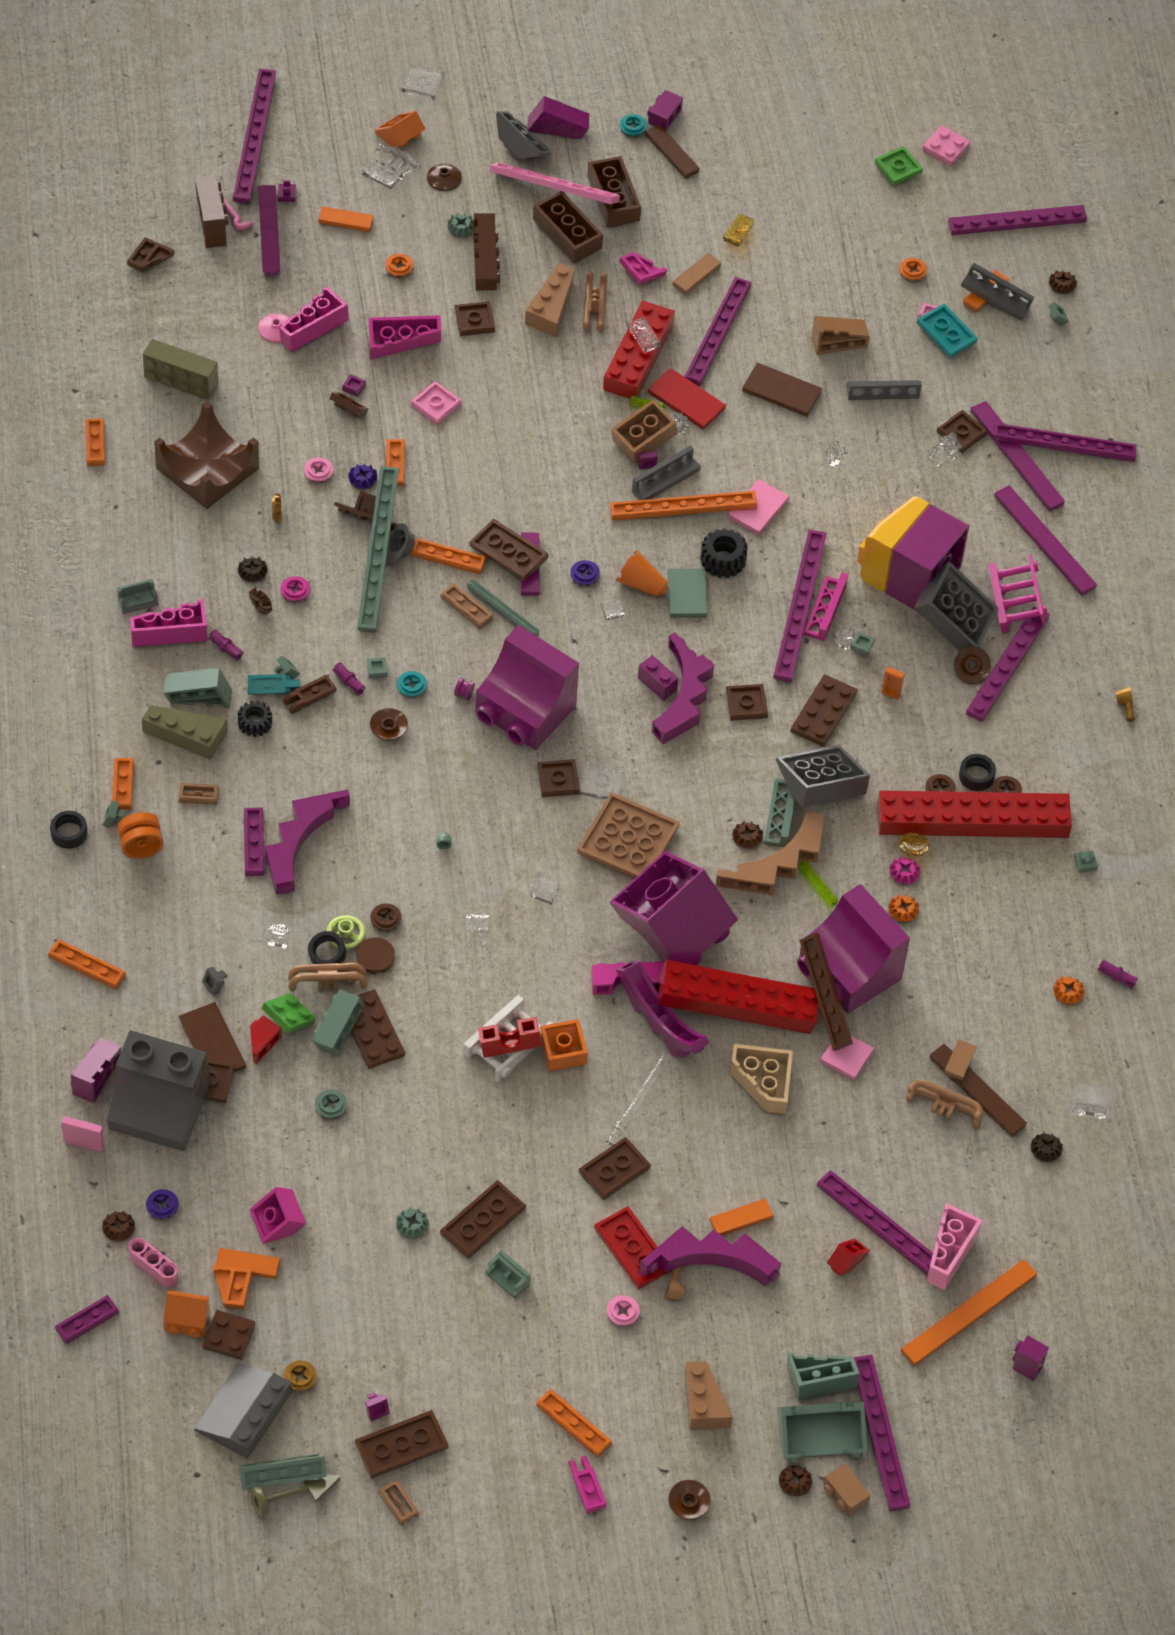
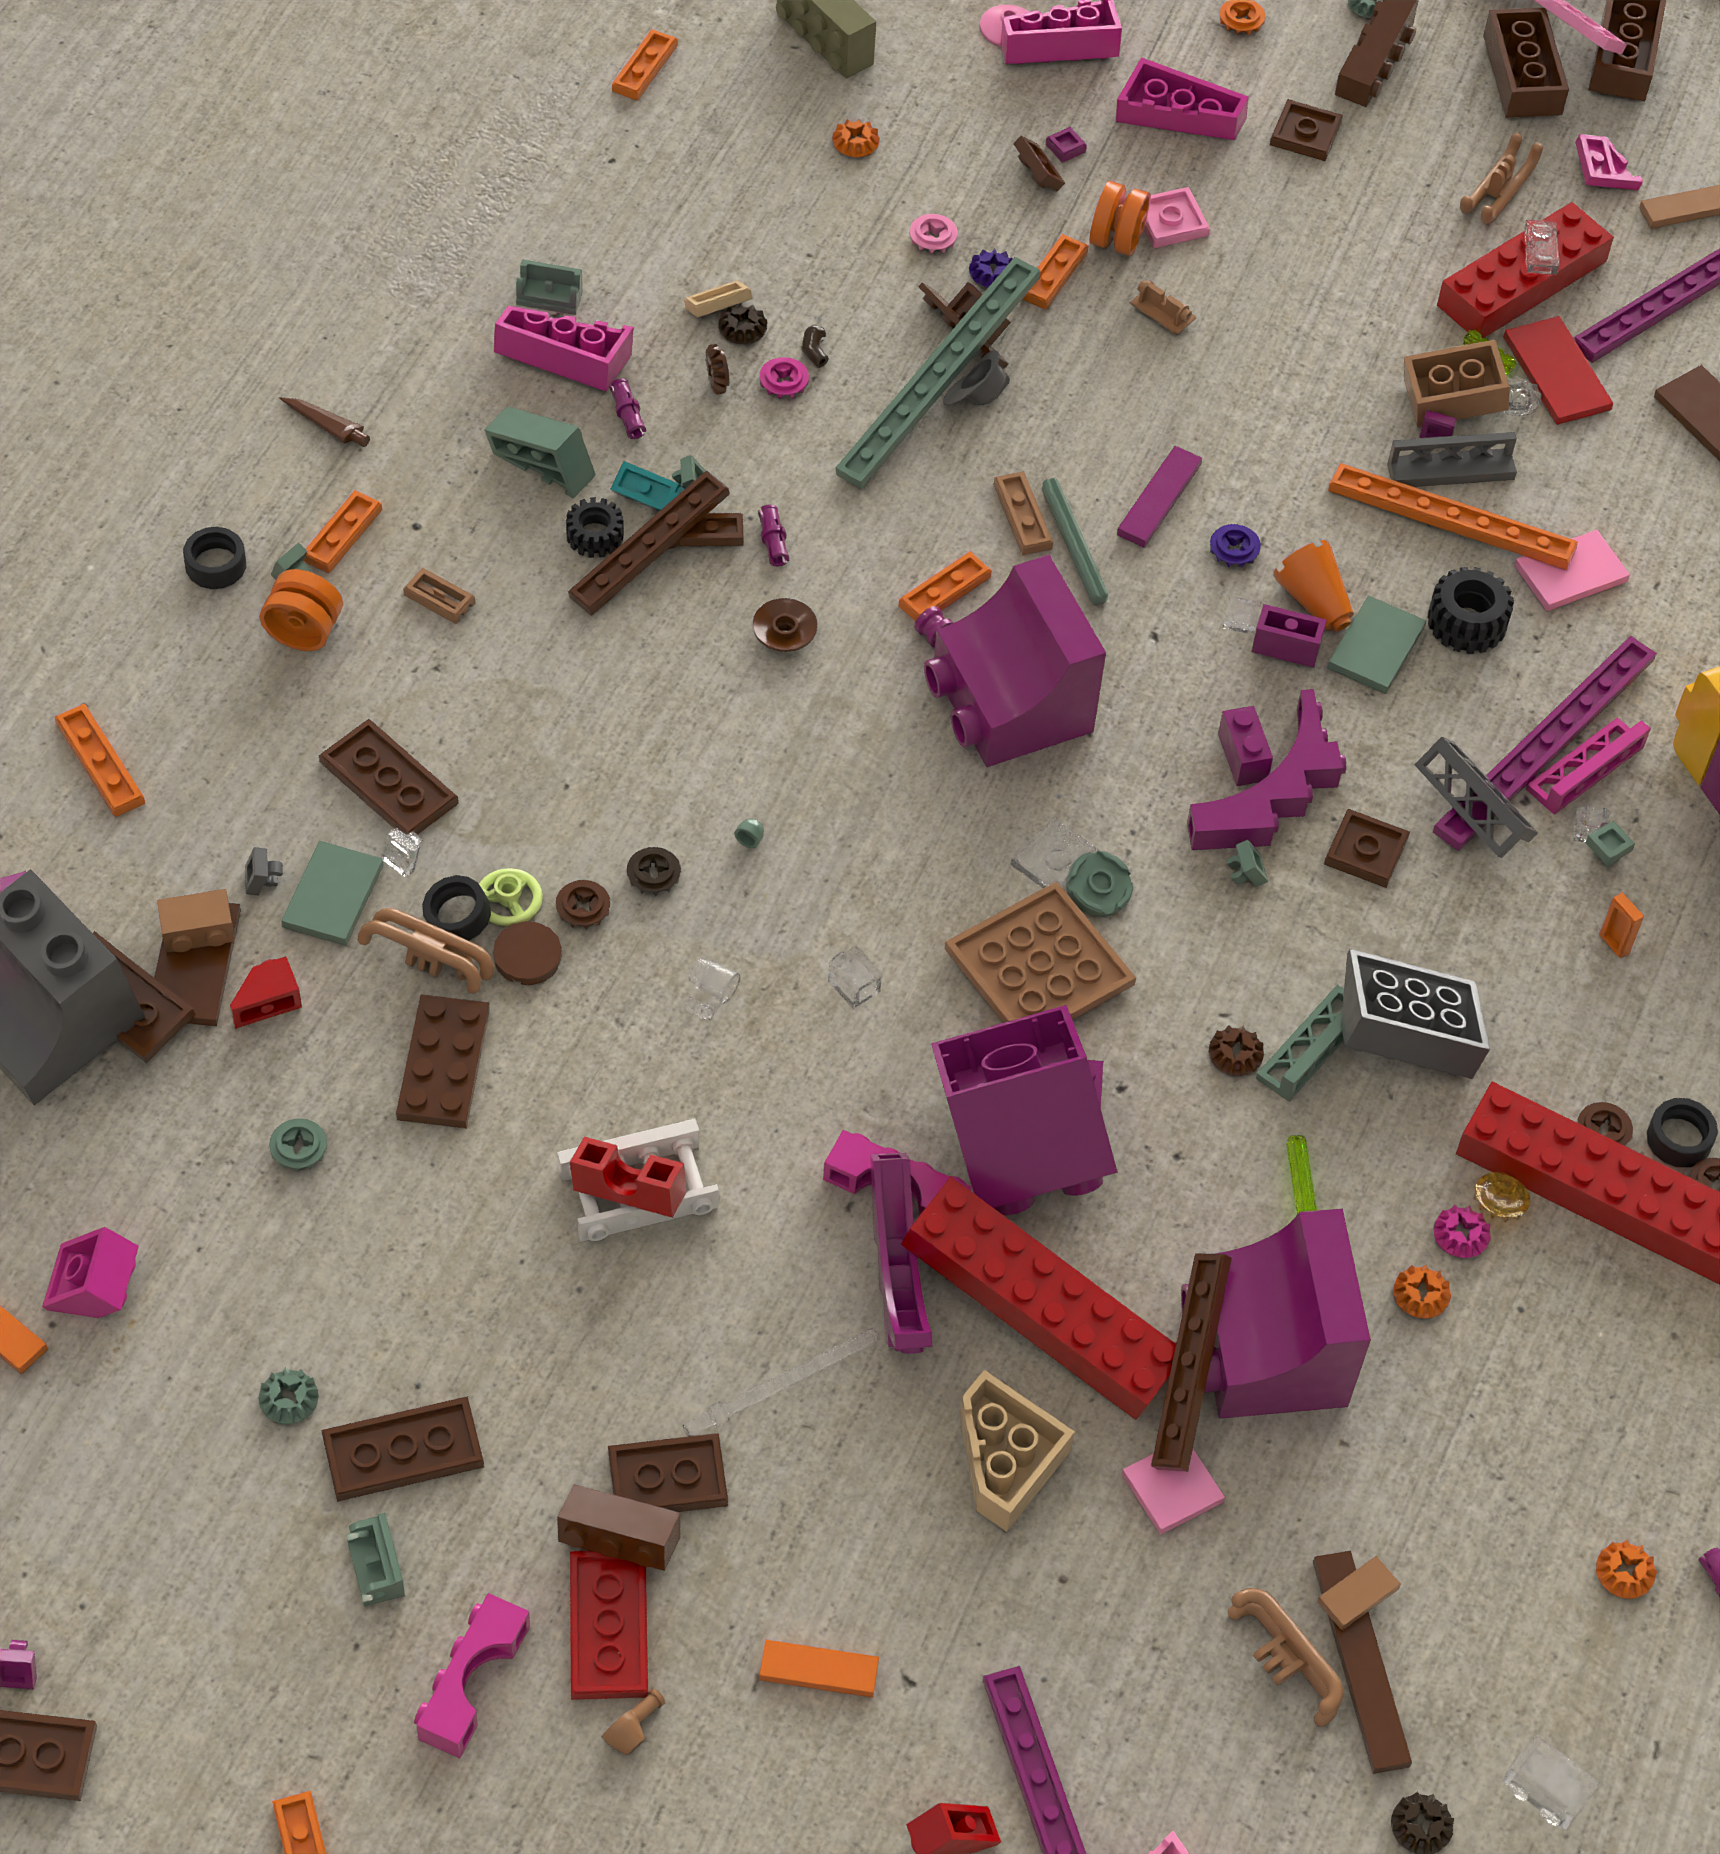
camera: 30 degrees right, 0 degrees up
(79, 727) = (337, 426): none -> reddish brown bar
(185, 729) = (483, 498): olive wedge -> none
(204, 1020) = (195, 921): none -> medium nougat brick
(207, 460) = (779, 152): reddish brown piece -> none
(231, 561) = (717, 298): none -> tan tile
(242, 902) = (388, 779): none -> reddish brown tile
(246, 435) = (858, 146): none -> orange gear
(254, 841) = (468, 701): magenta tile -> none
(256, 973) = (332, 893): none -> sand green tile
(276, 508) = (831, 254): pearl gold gear -> none
(288, 1013) = (330, 973): bright green plate -> none
(290, 713) = (648, 543): none -> reddish brown tile
(296, 563) = (810, 345): none -> dark brown arm
(308, 815) = (571, 701): magenta arch -> none
(338, 1022) = (391, 1023): sand green brick -> none
(377, 667) = (825, 538): sand green plate -> none
(410, 876) = (667, 868): none -> dark brown gear
(415, 417) = (1119, 218): none -> orange wheel
(416, 678) = (850, 580): teal gear -> none
(448, 556) = (1044, 432): orange tile -> none
(453, 665) = (946, 586): none -> orange tile
(468, 458) = (1163, 309): none -> medium nougat hinge
(509, 549) = (1137, 460): reddish brown plate -> none
(550, 302) = (1435, 150): medium nougat wedge -> none
(558, 778) = (992, 823): reddish brown tile -> none
(563, 1045) = (713, 1234): orange slope -> none
(591, 1322) = (493, 1634): none -> dark pink arch
(611, 1201) = (618, 1527): none -> reddish brown brick
(623, 1302) = (503, 1713): bright pink gear -> none
(631, 783) = (1099, 884): none -> sand green tile
(644, 609) = (1288, 635): none -> magenta brick
(685, 1249) = (680, 1672): magenta arch -> none
(697, 737) = (1250, 865): none -> sand green tile
(761, 874) = (1218, 1123): medium nougat arch -> none
(788, 644) = (1484, 788): none -> dark grey fence
(824, 710) = (1485, 918): reddish brown plate -> none

